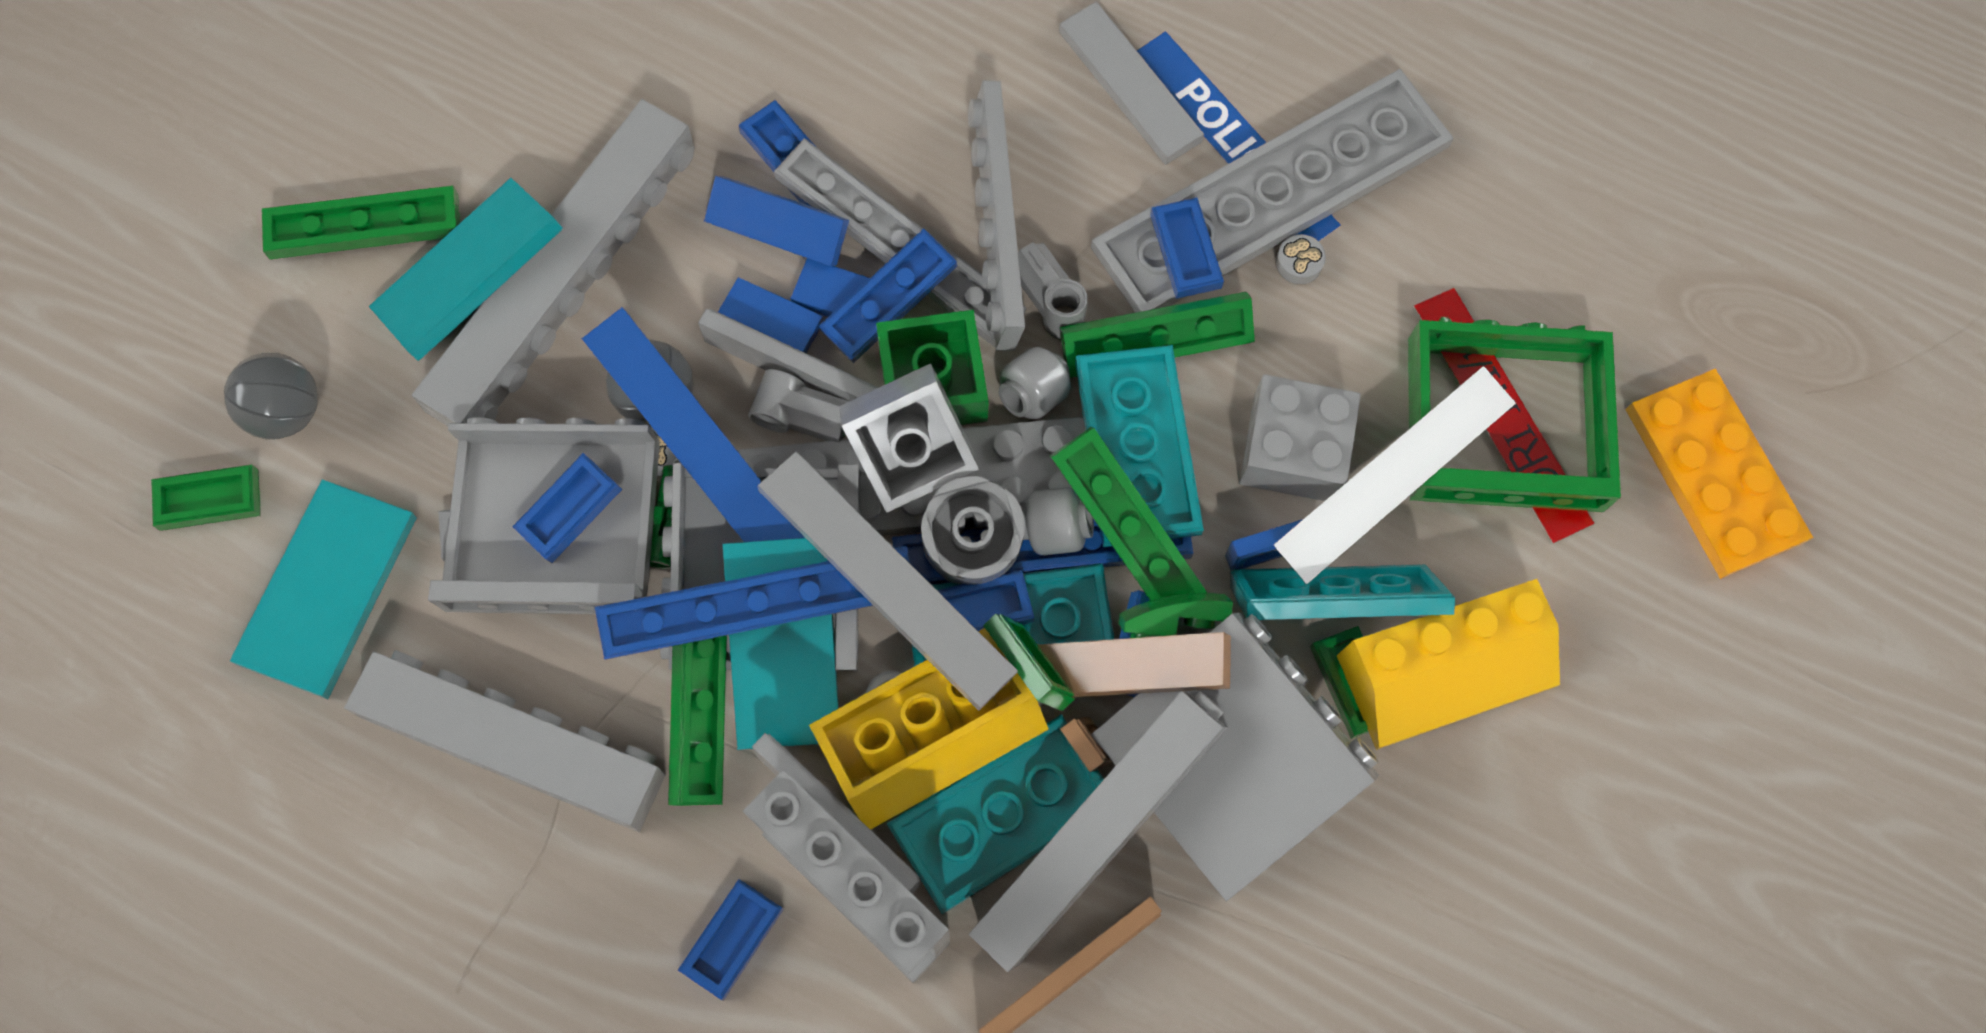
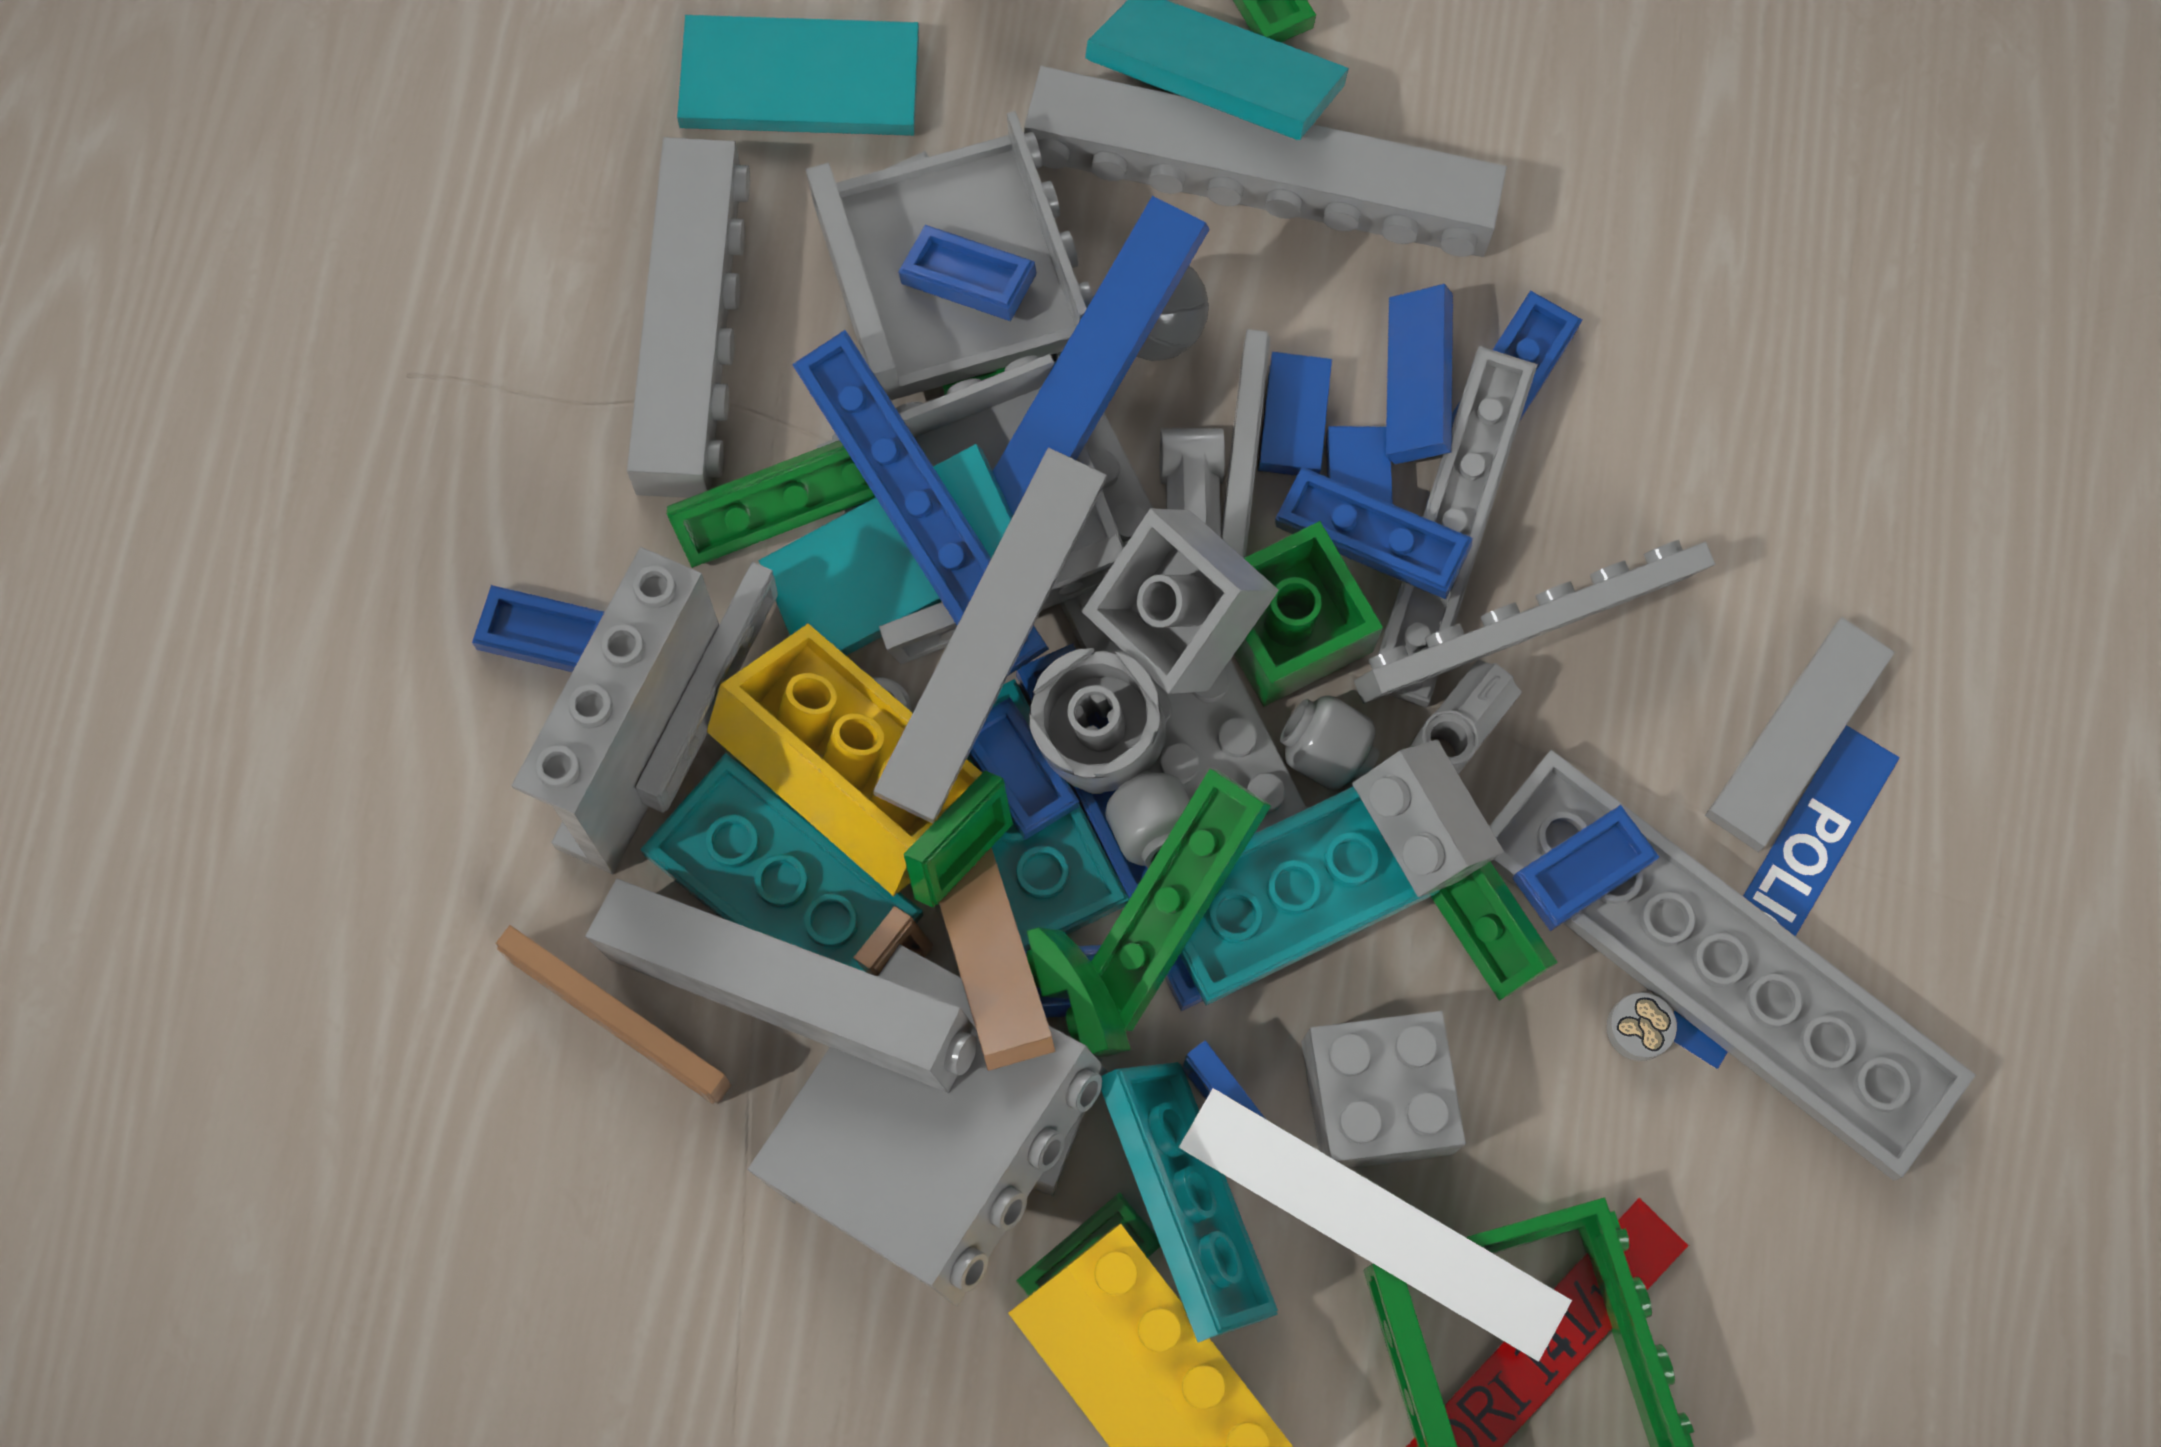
camera: 70 degrees right, 0 degrees up
(1126, 330) = (1427, 817): none -> light grey brick

